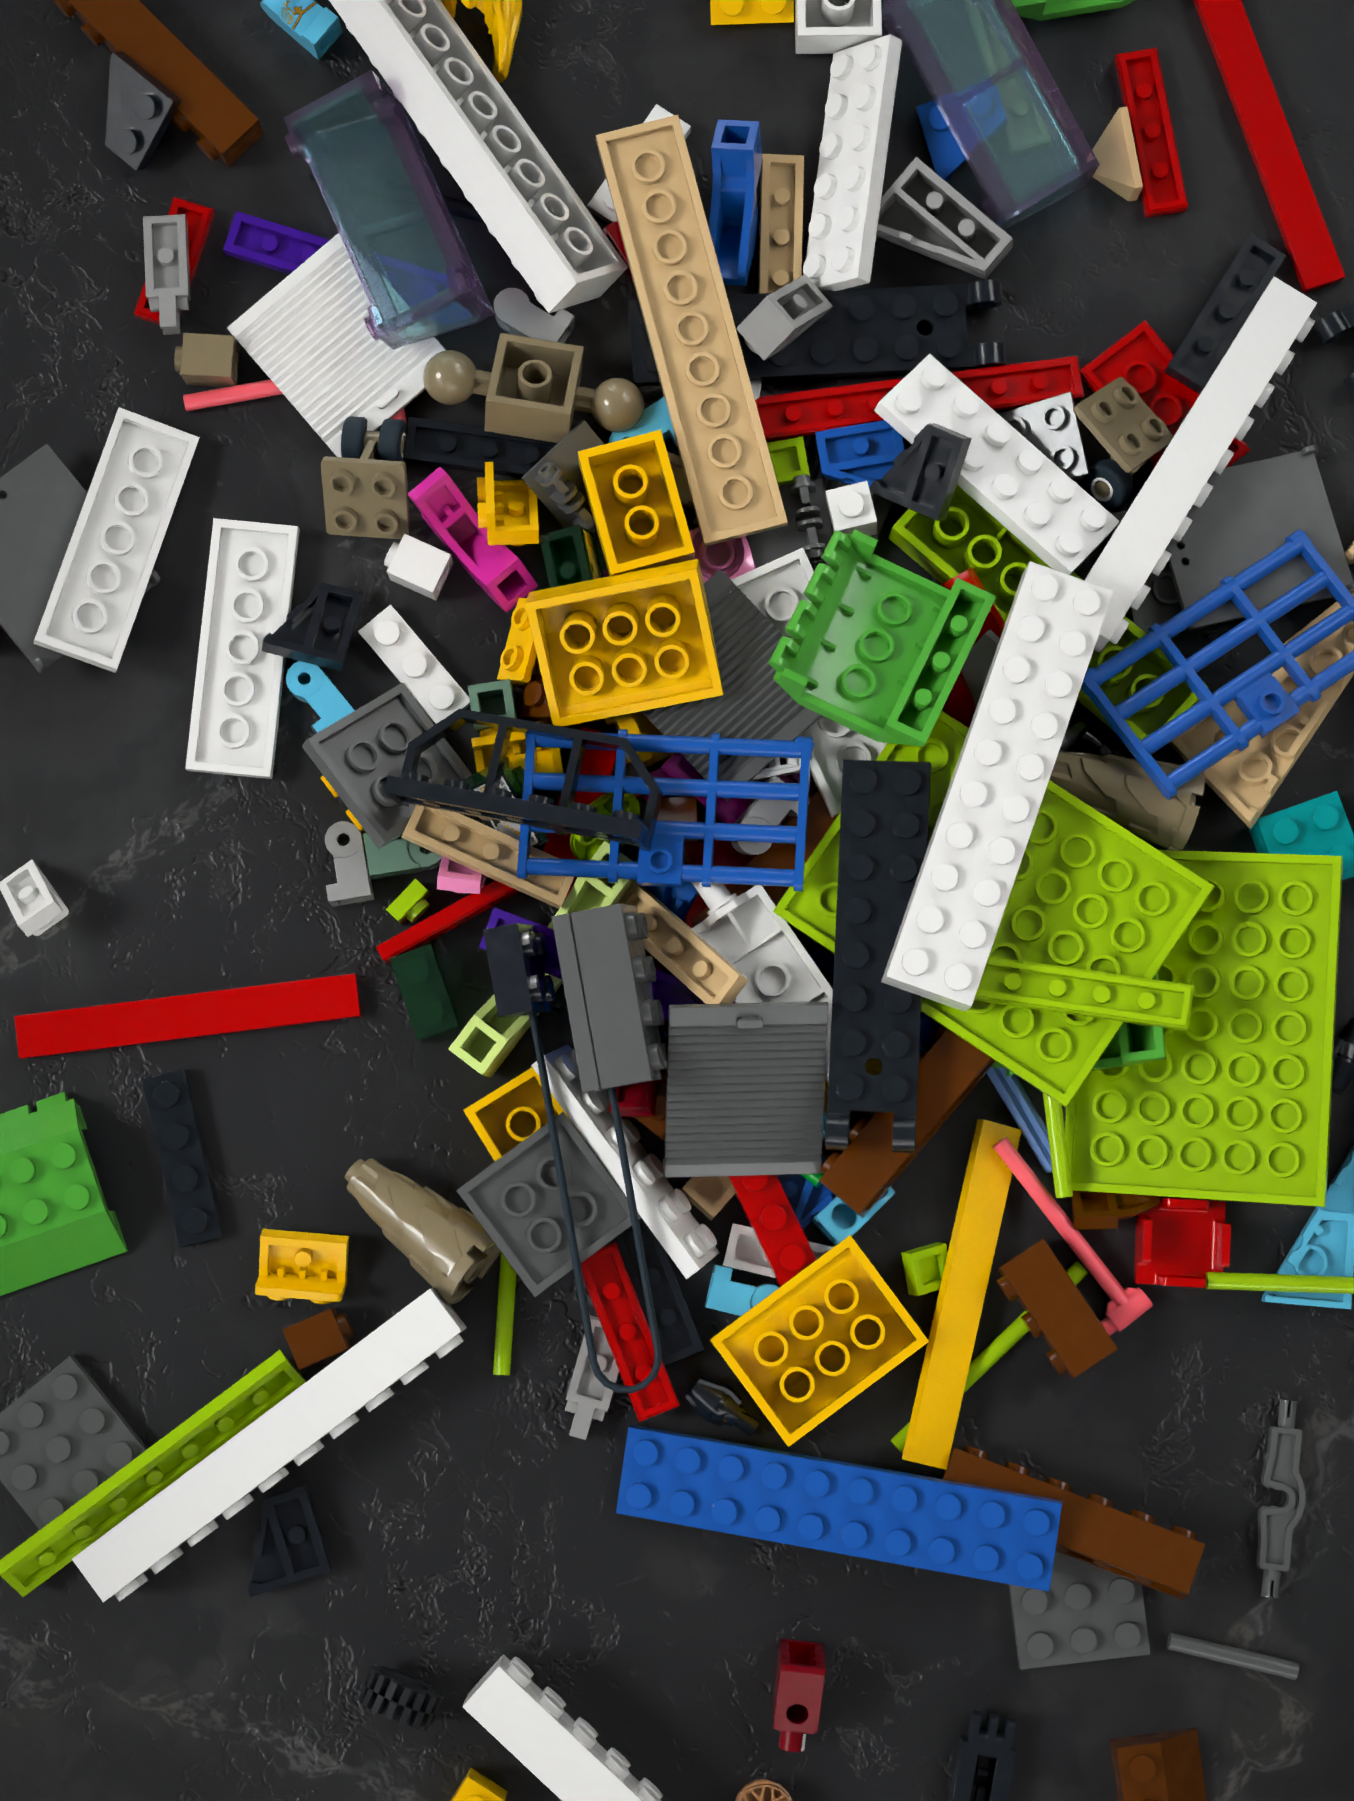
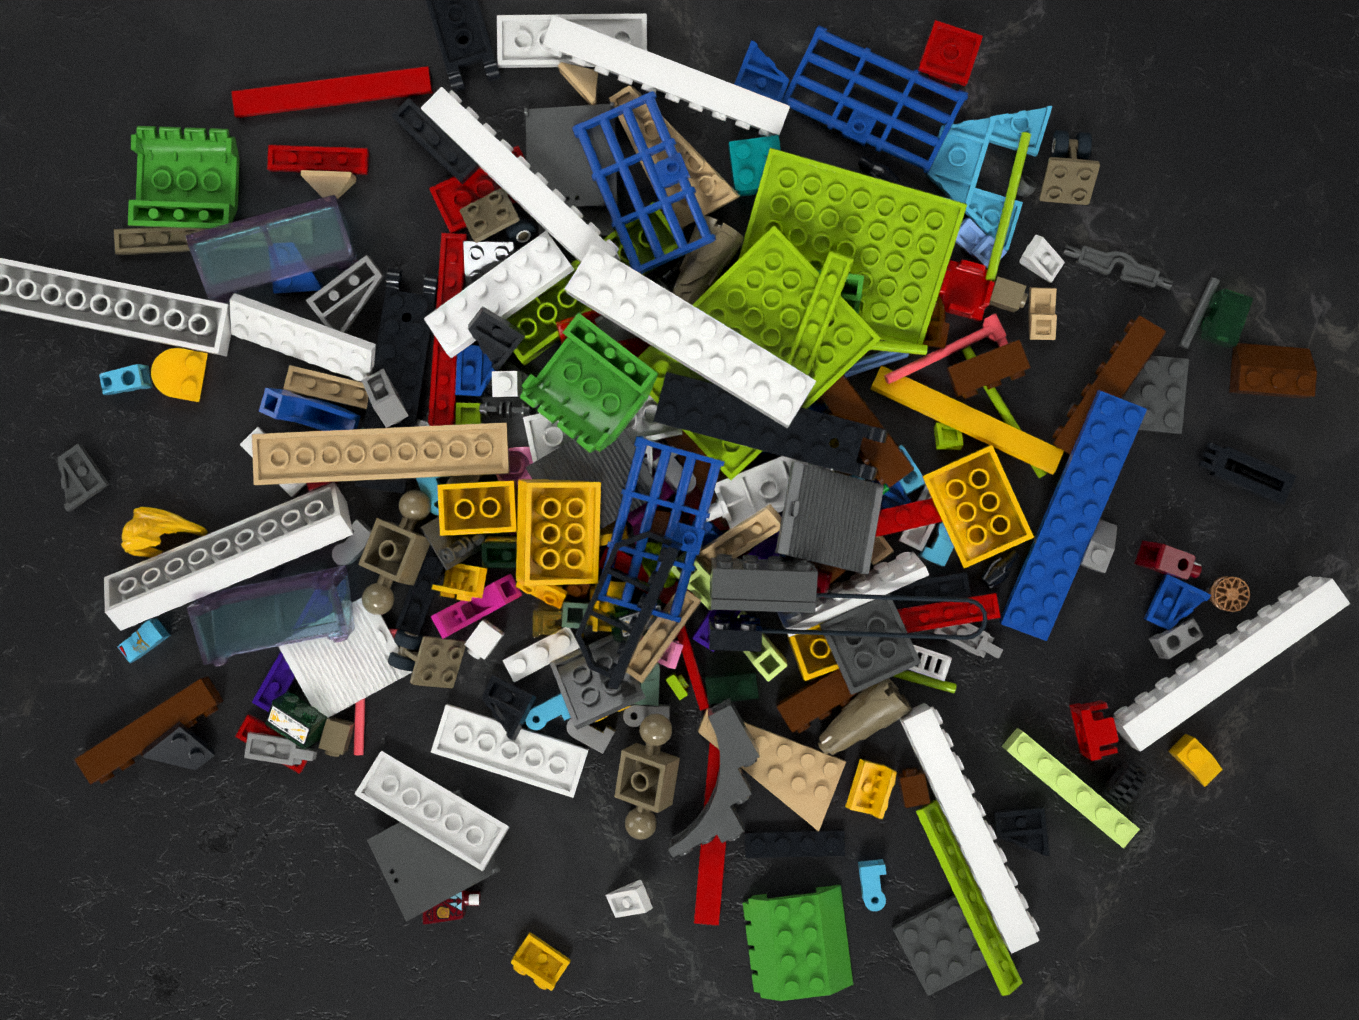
camera: 75 degrees left, 5 degrees up
(126, 1306) = (870, 883): none -> medium azure leg
(205, 1018) = (731, 787): none -> dark grey arch
(221, 287) = (296, 720): none -> clear green brick
(246, 882) = (647, 776): none -> dark tan brick
(296, 778) = (592, 735): none -> light grey leg
(307, 1118) = (790, 771): none -> tan wing
(373, 1607) = (1070, 787): none -> yellowish green arch
(430, 1137) = (814, 701): none -> reddish brown brick
(470, 654) = (542, 624): none -> clear yellow hinge
(481, 1624) = (1094, 730): none -> red panel
(530, 1344) = (946, 660): none -> white slope
(668, 1737) = (1176, 639): none -> light grey leg
(729, 1719) = (1173, 602): none -> blue wing
(797, 1568) = (1100, 547): none -> light grey slope
(1170, 1385) = (1042, 313): none -> tan slope
(1188, 1317) = (1008, 295): none -> dark tan brick
(1234, 1702) = (1226, 318): none -> clear green brick
(1262, 1363) = (1042, 259): none -> white slope
(1265, 1243) = (975, 242): none -> light blue slope

